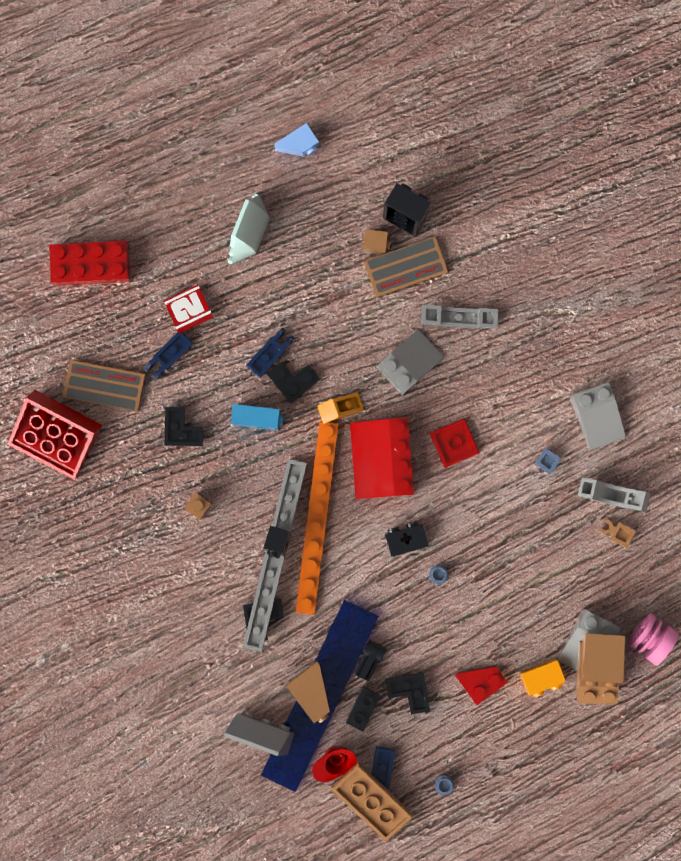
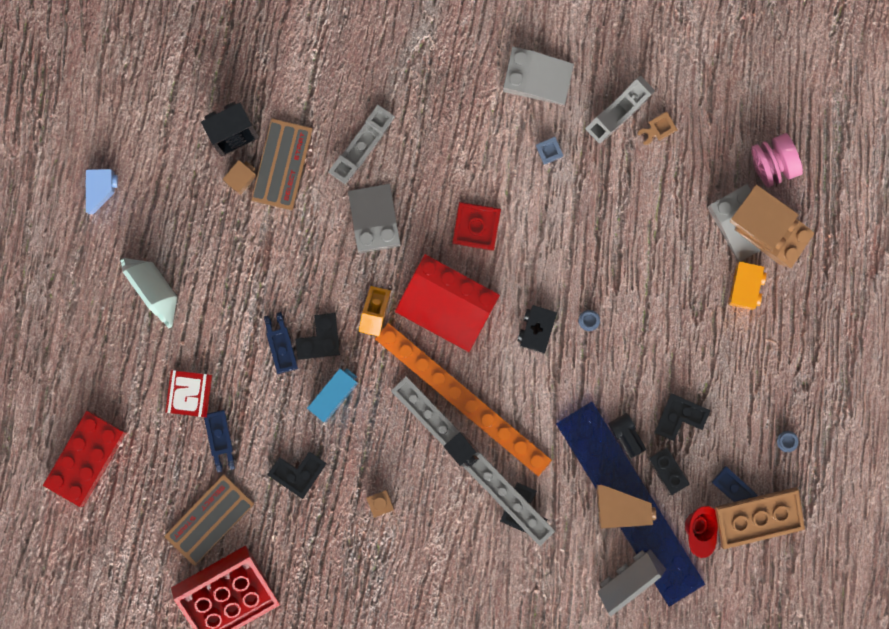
camera: 50 degrees left, 0 degrees up
(481, 682) = (715, 345): red wing -> none

